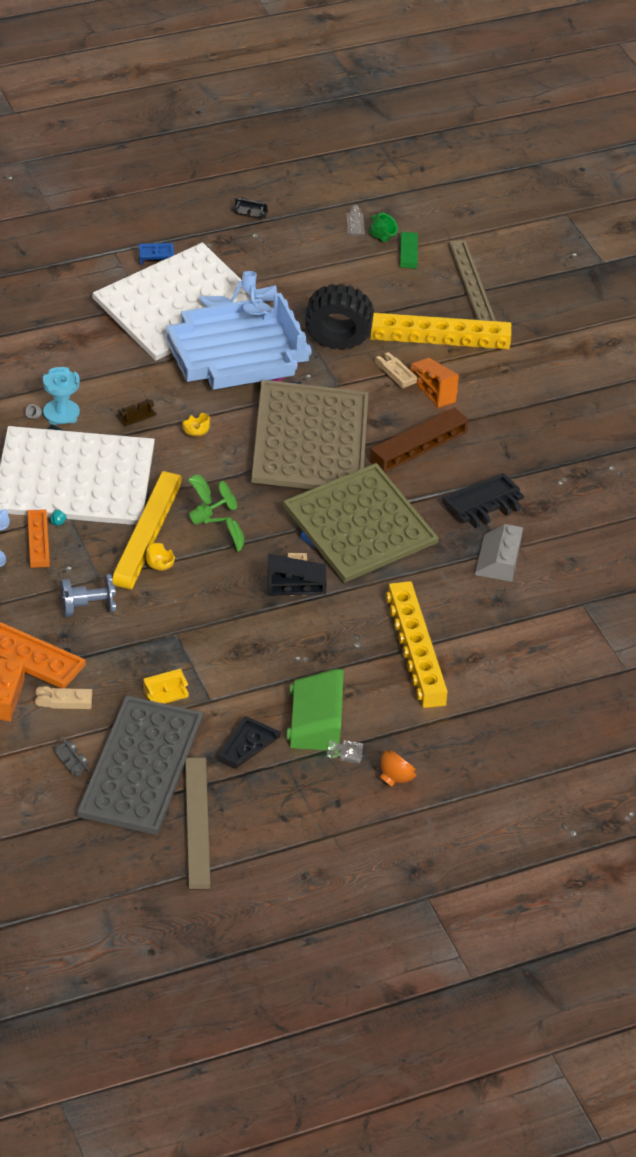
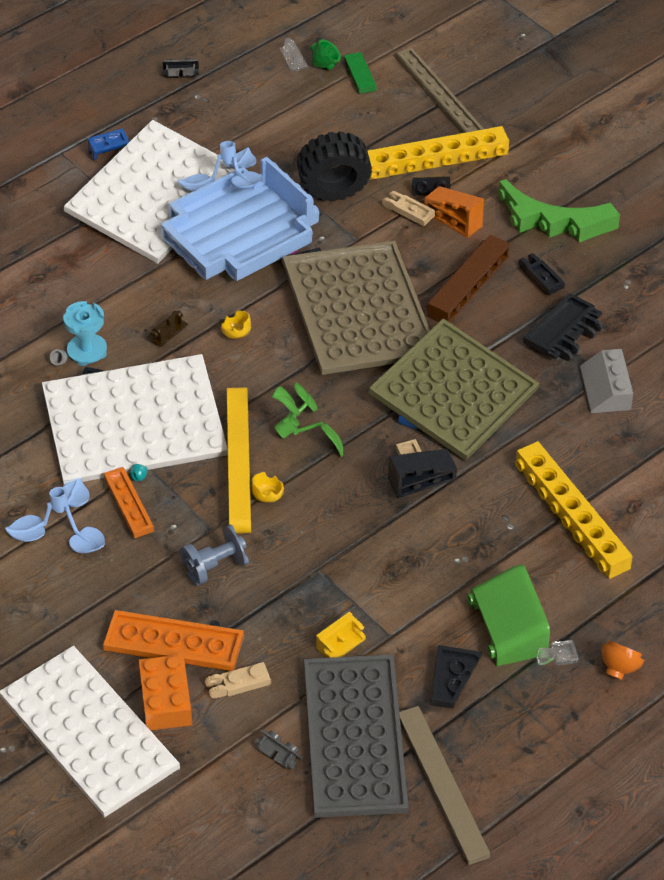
camera: 15 degrees left, 5 degrees up
(419, 353) = (426, 185): none -> black hinge
(487, 453) = (542, 274): none -> black hinge
(520, 411) = (554, 220): none -> bright green arch

